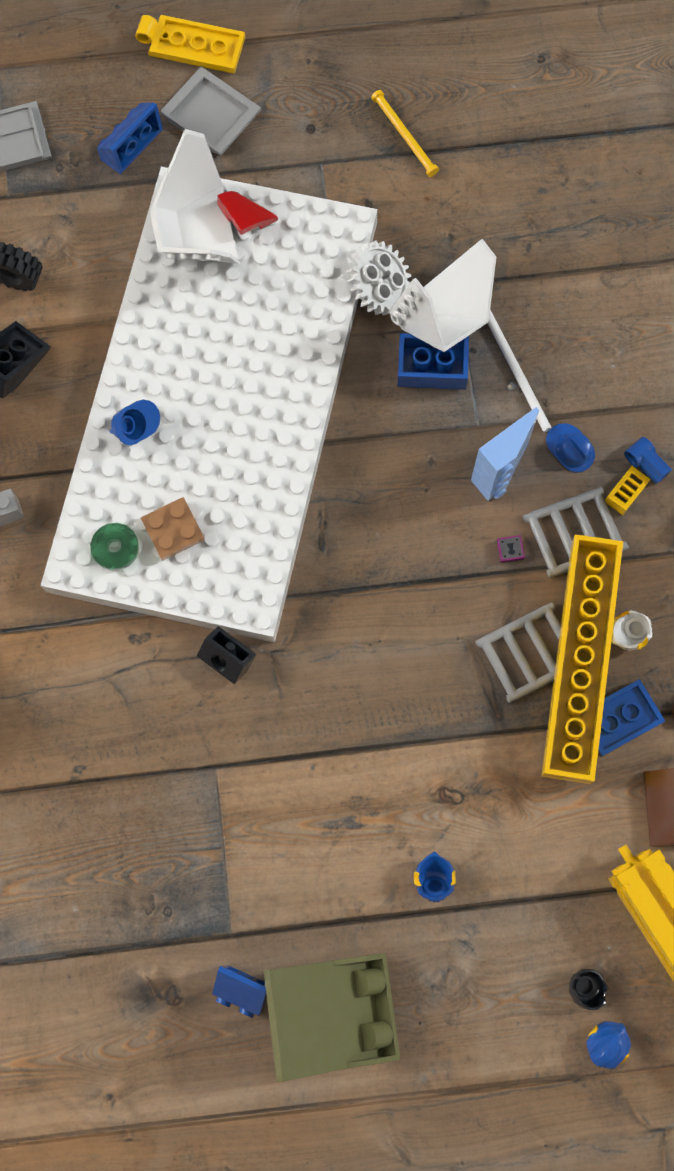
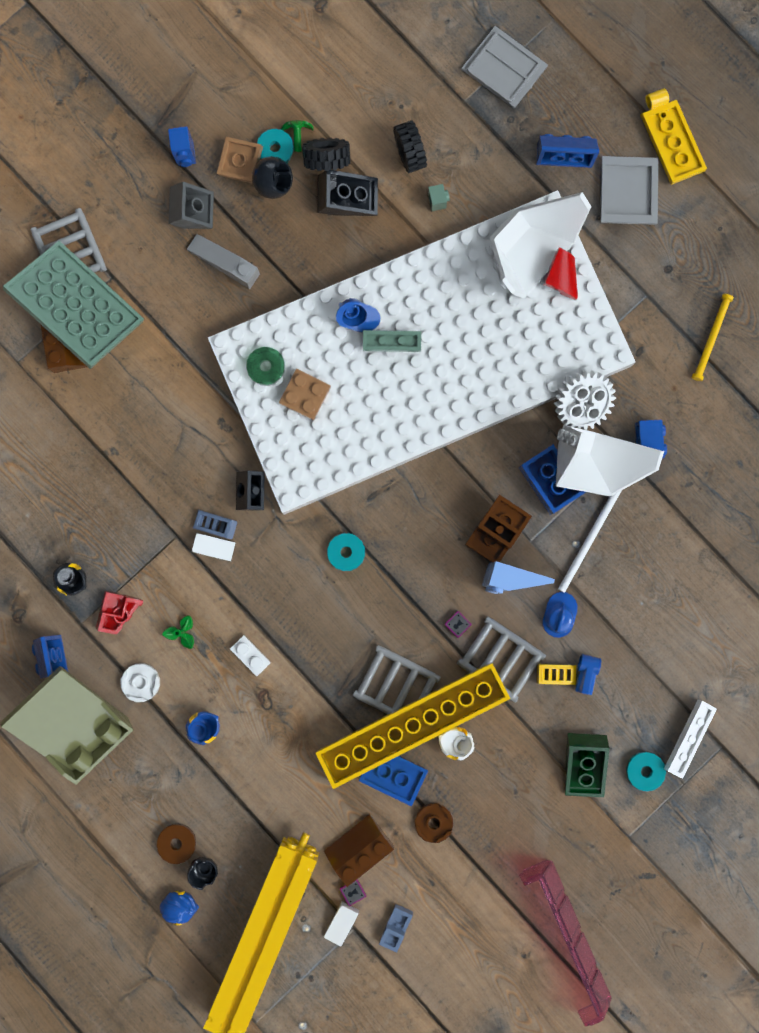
camera: 50 degrees right, 10 degrees up
(79, 279) = (438, 197): none -> sand green plate
(176, 908) = (69, 579): none -> black hair
(185, 409) = (392, 341): none -> sand green plate
(246, 886) = (115, 611): none -> red slope
(249, 704) = (227, 525): none -> sand blue slope
(255, 735) = (213, 547): none -> white slope
(313, 822) = (173, 633): none -> green plant
(339, 914) = (140, 682): none -> white tile
(355, 593) = (335, 547): none -> teal tile
(394, 777) = (250, 655): none -> white plate
(445, 442) = (498, 530): none -> reddish brown bracket
(454, 244) = (650, 434): none -> blue brick
(553, 998) = (165, 847): none -> reddish brown tile

